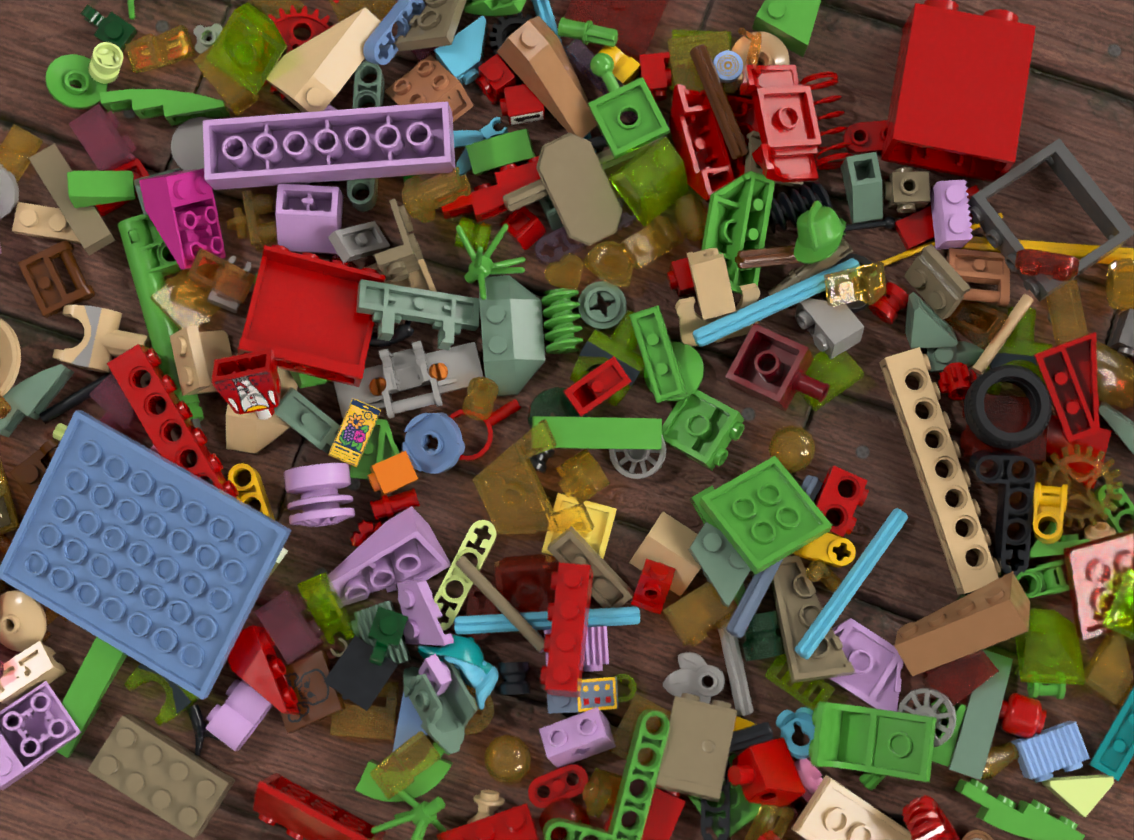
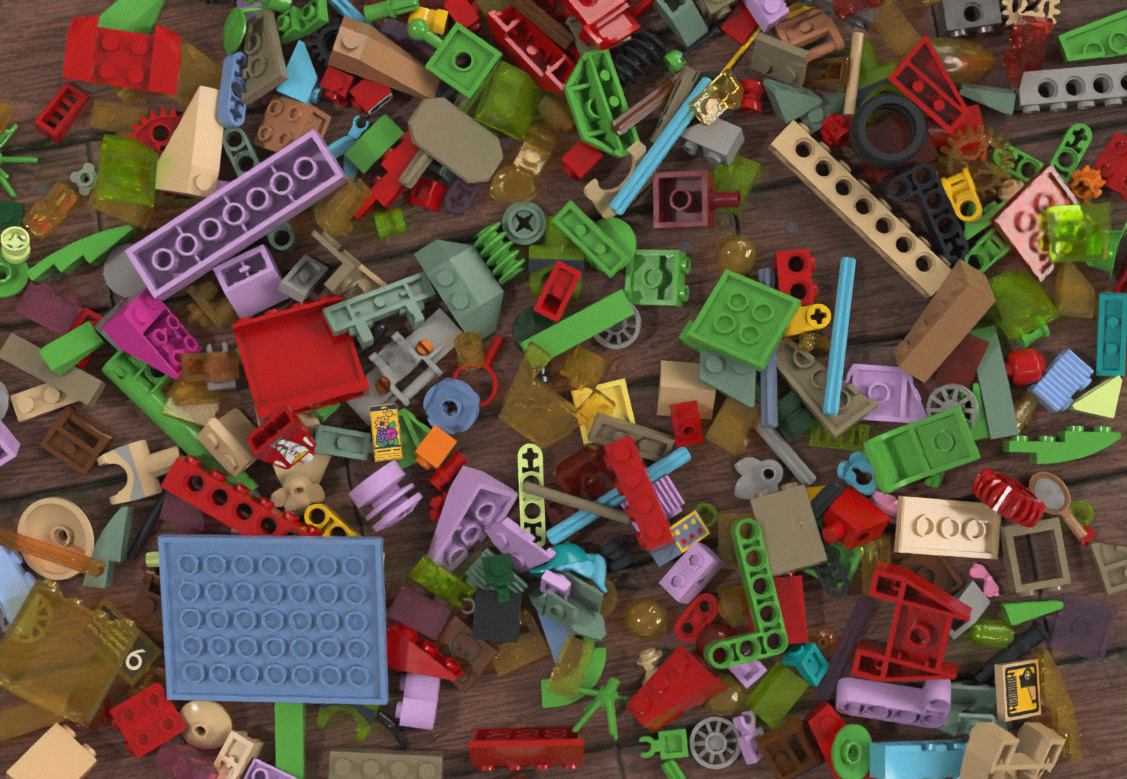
camera: 25 degrees left, 5 degrees up
(236, 445) = (297, 494): none -> tan plate
(482, 264) = (412, 243): bright green plant -> none
(565, 272) = (480, 213): clear yellow tile -> none
(711, 283) = (602, 159): tan hinge -> none
(818, 234) = (666, 74): bright green piece -> none

